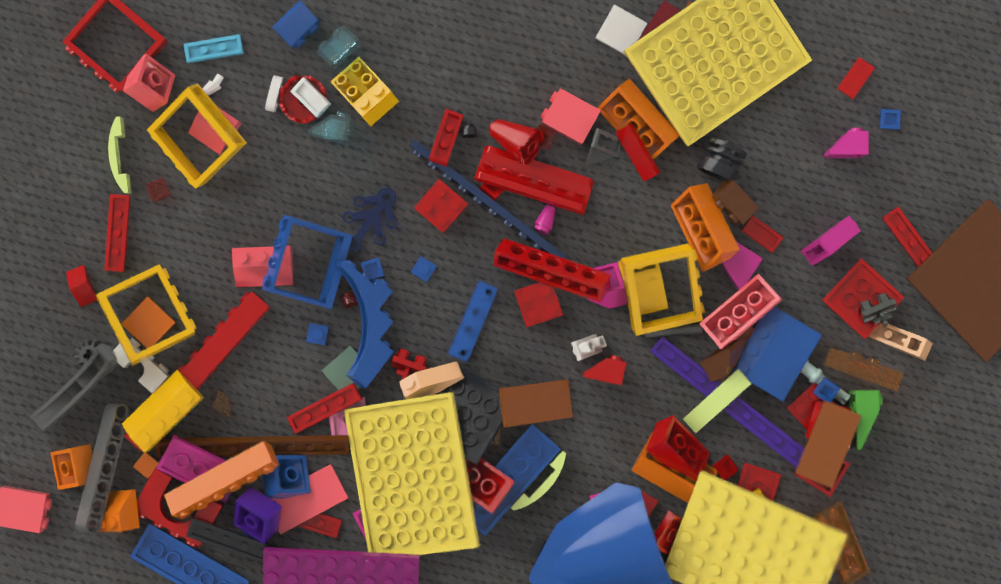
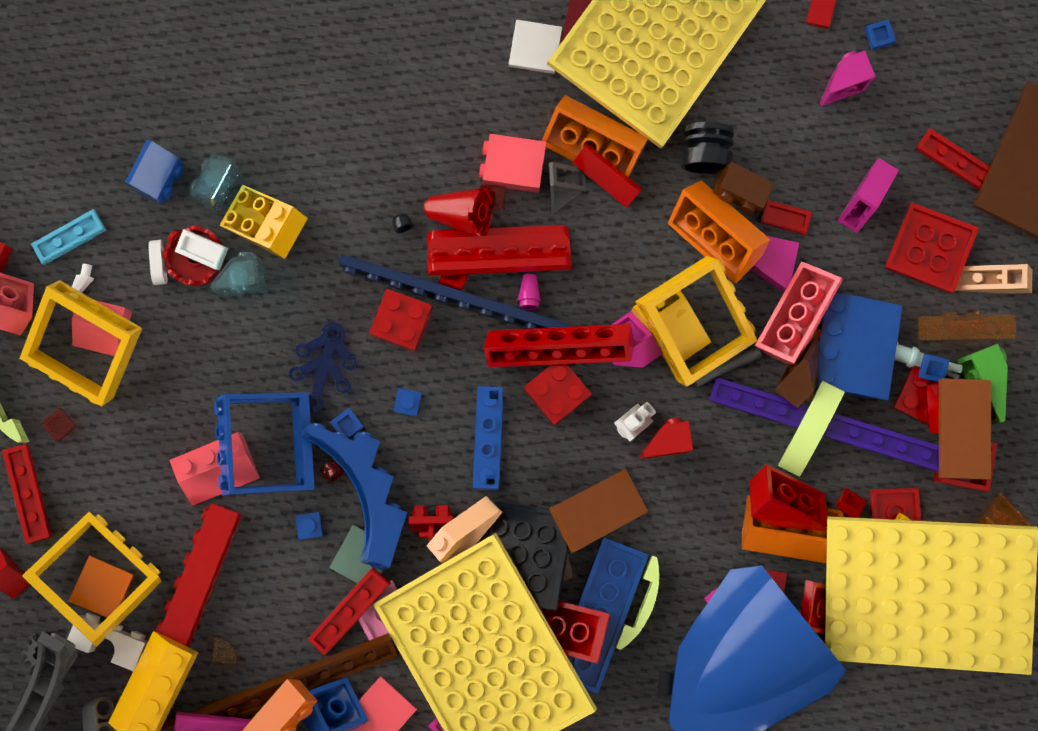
camera: 25 degrees left, 5 degrees down
(445, 137) = (377, 239): red tile -> none
(878, 313) = (960, 255): pearl dark grey hips -> none

